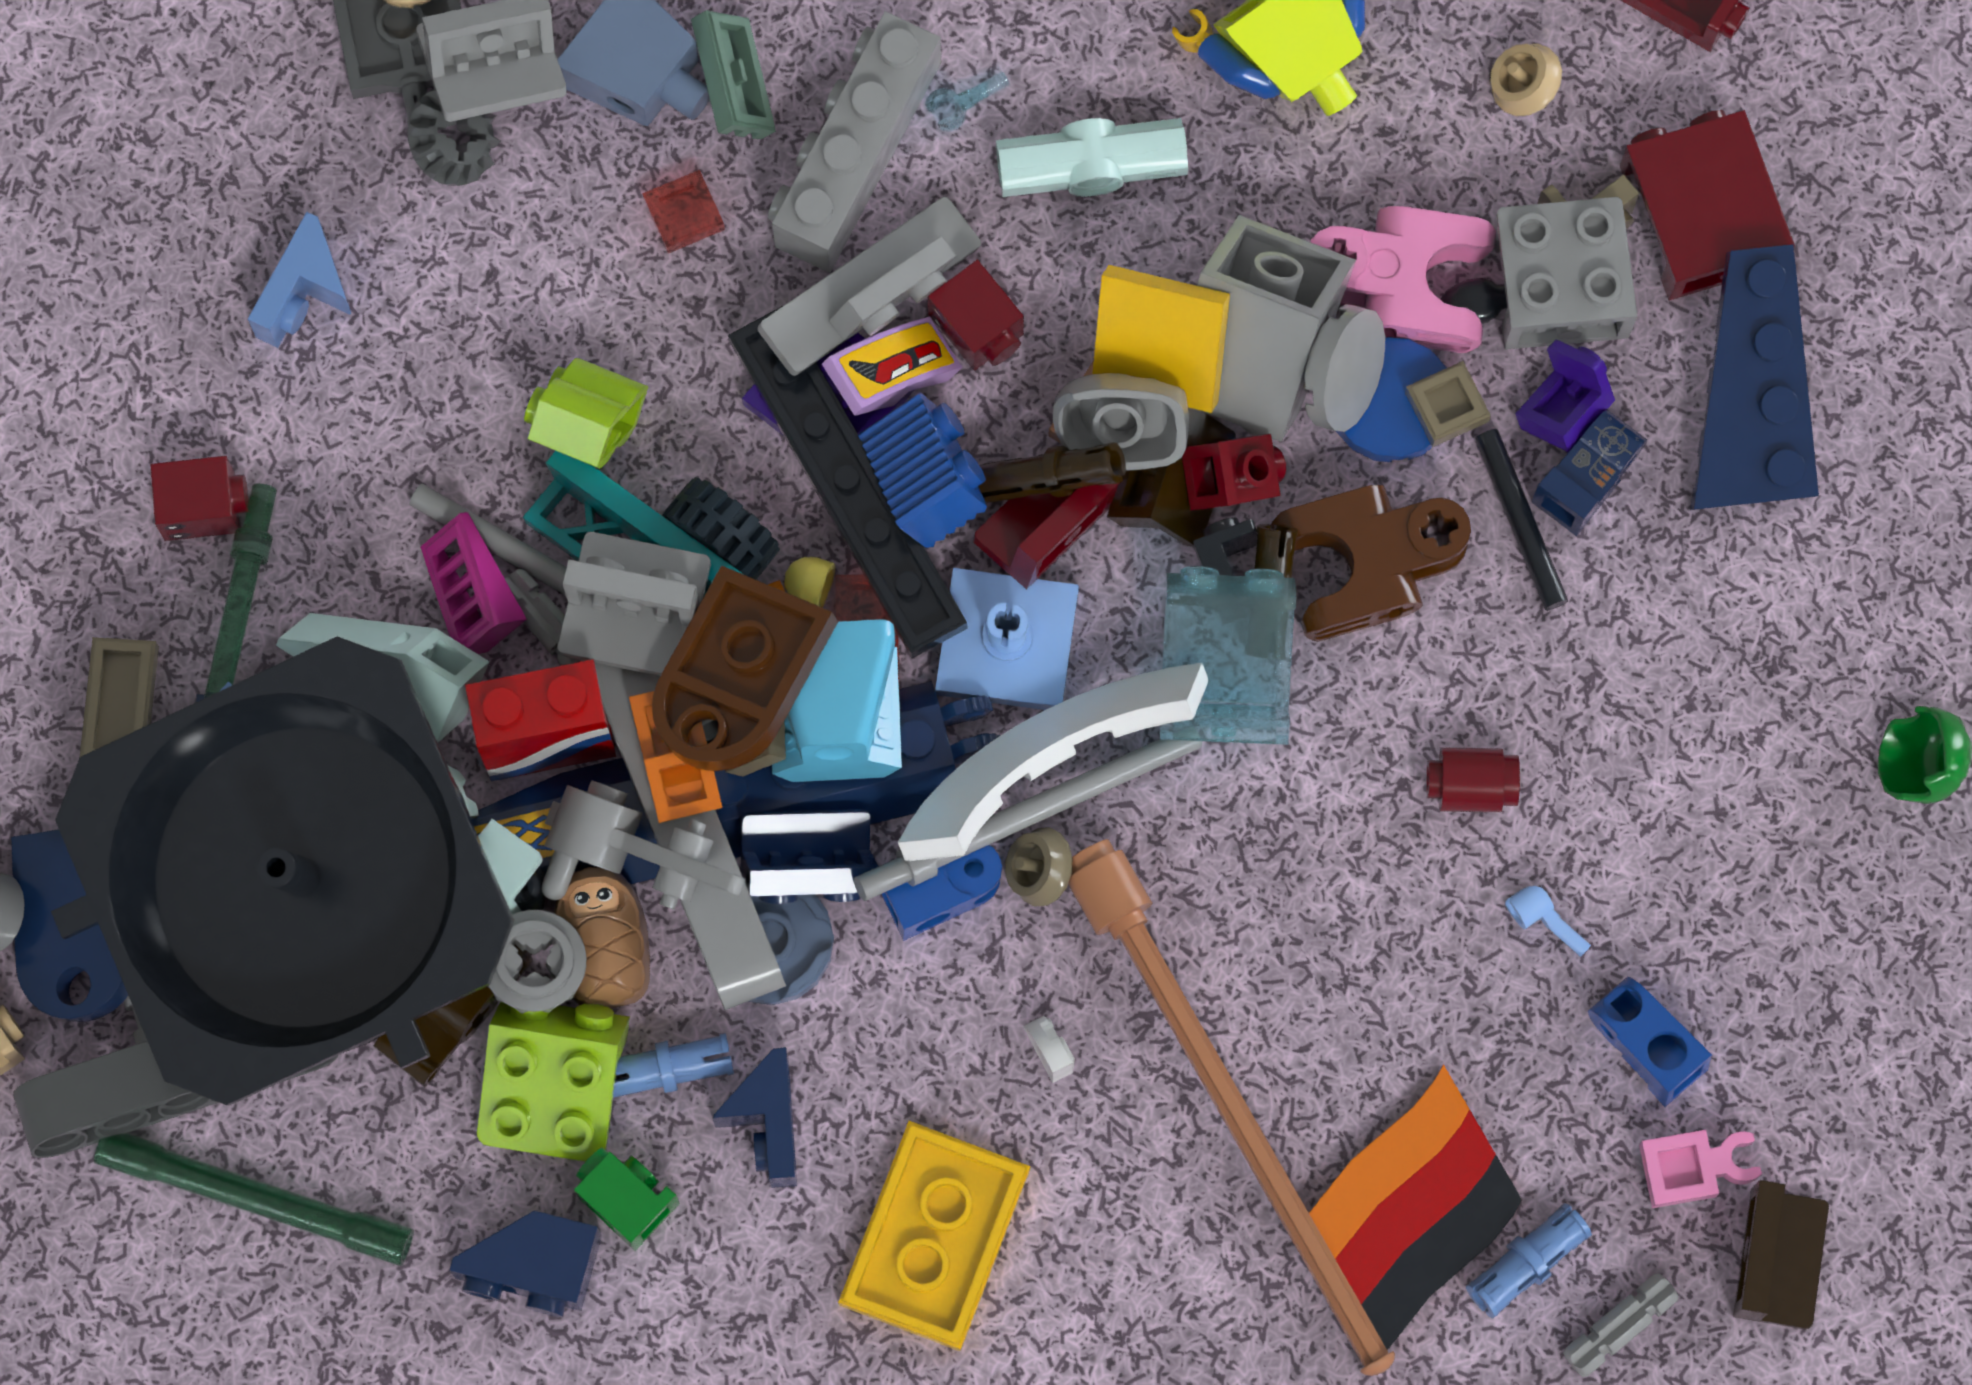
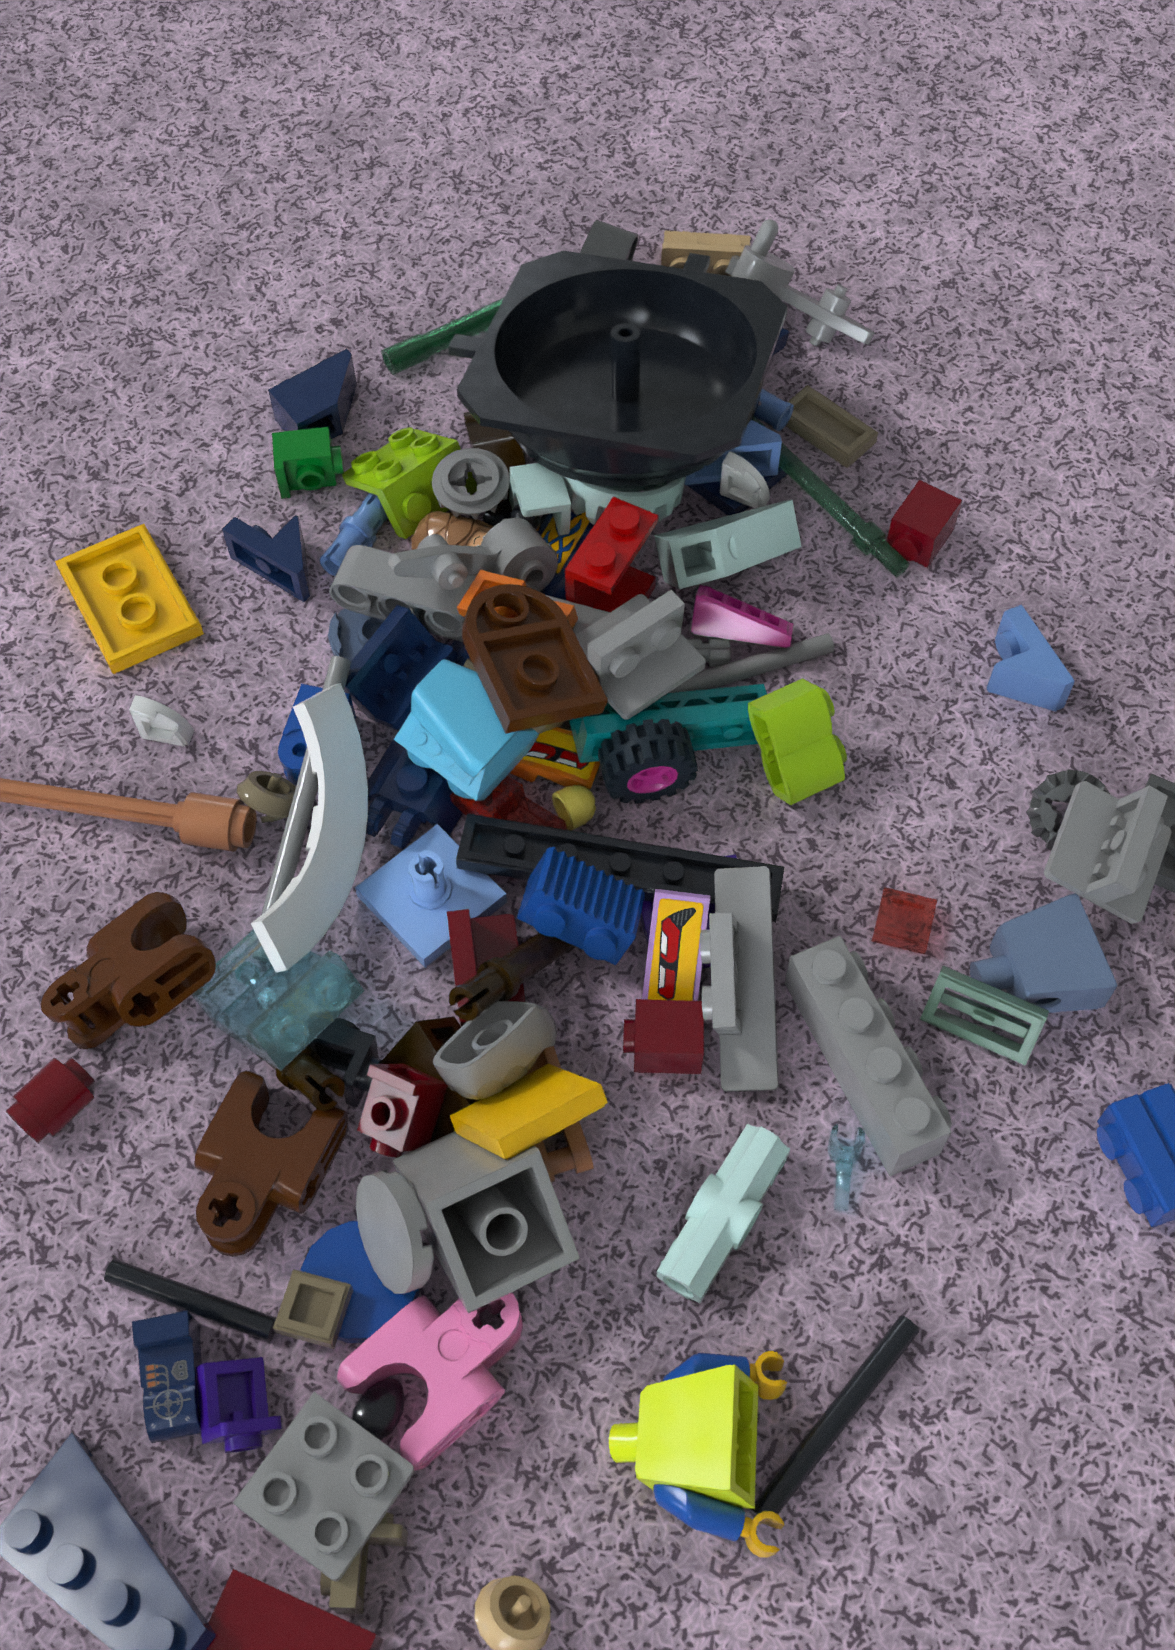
camera: 130 degrees right, 15 degrees down
(1326, 811) = (133, 972): none -> reddish brown piece

